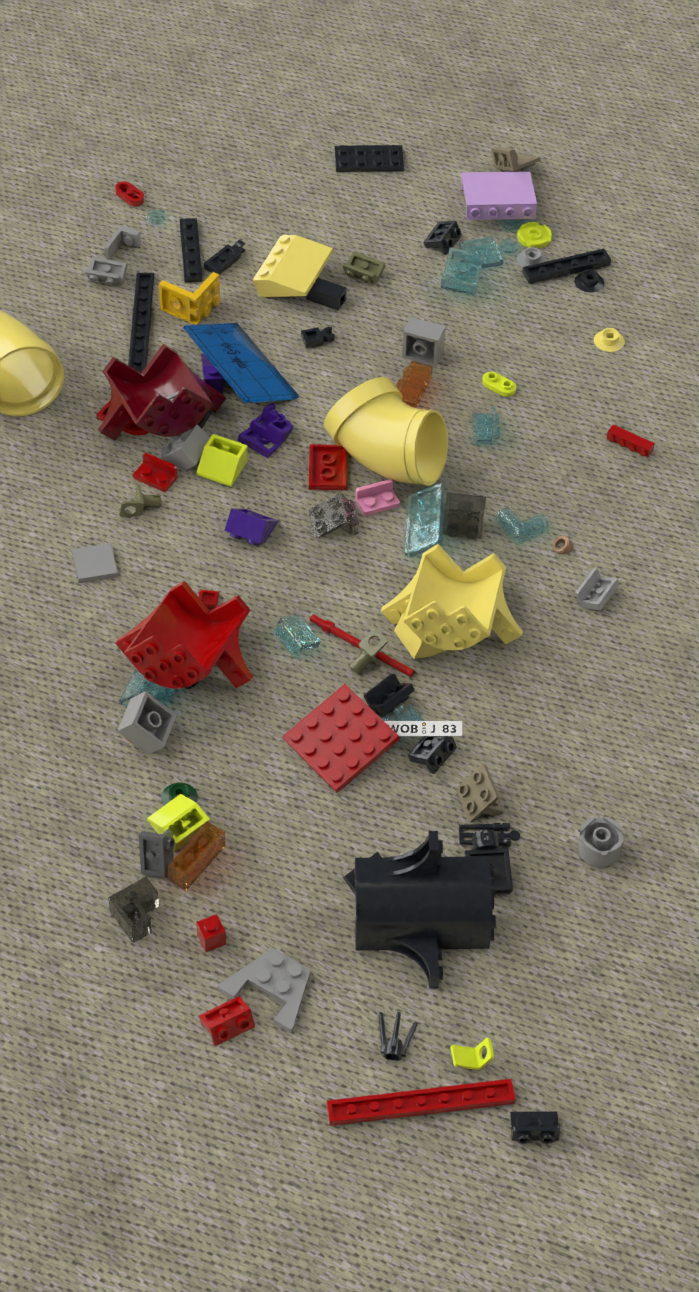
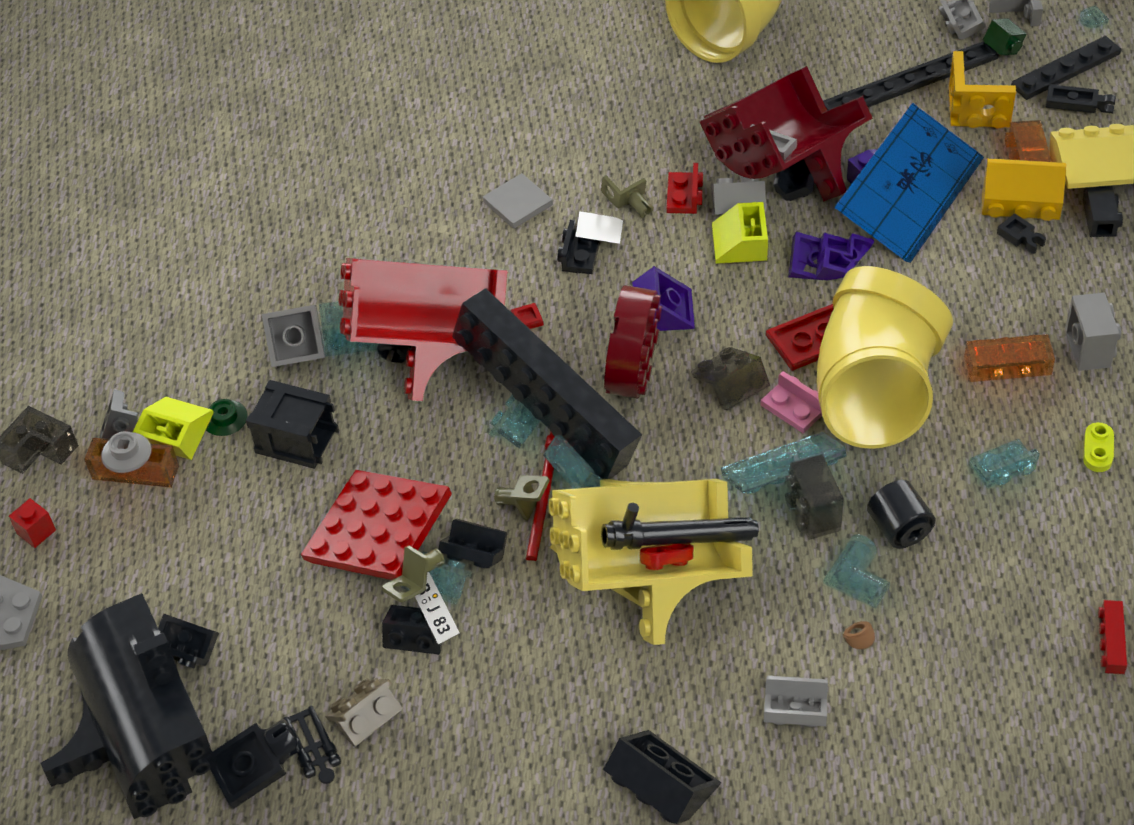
camera: 70 degrees right, 0 degrees up
(147, 261) = (1004, 37): none -> dark green brick
(157, 529) = (599, 227): none -> white sticker
(168, 548) = (577, 253): none -> black bracket
(195, 856) = (129, 459): none -> light grey piece
(228, 751) = (292, 424): none -> black container
(257, 300) = (1027, 141): none -> clear orange brick
(289, 316) = (1023, 189): none -> yellow slope
(295, 542) = (632, 342): none -> dark red brick
(300, 598) = (545, 384): none -> black brick
(361, 618) = (570, 464): none -> clear light blue bracket
(406, 724) = (414, 573): none -> olive bracket
(452, 598) = (634, 534): none -> black cylinder
(469, 596) = (675, 554): none -> red plate
(500, 484) = (901, 514): none -> black piece
(611, 671) = (660, 776): none -> black slope

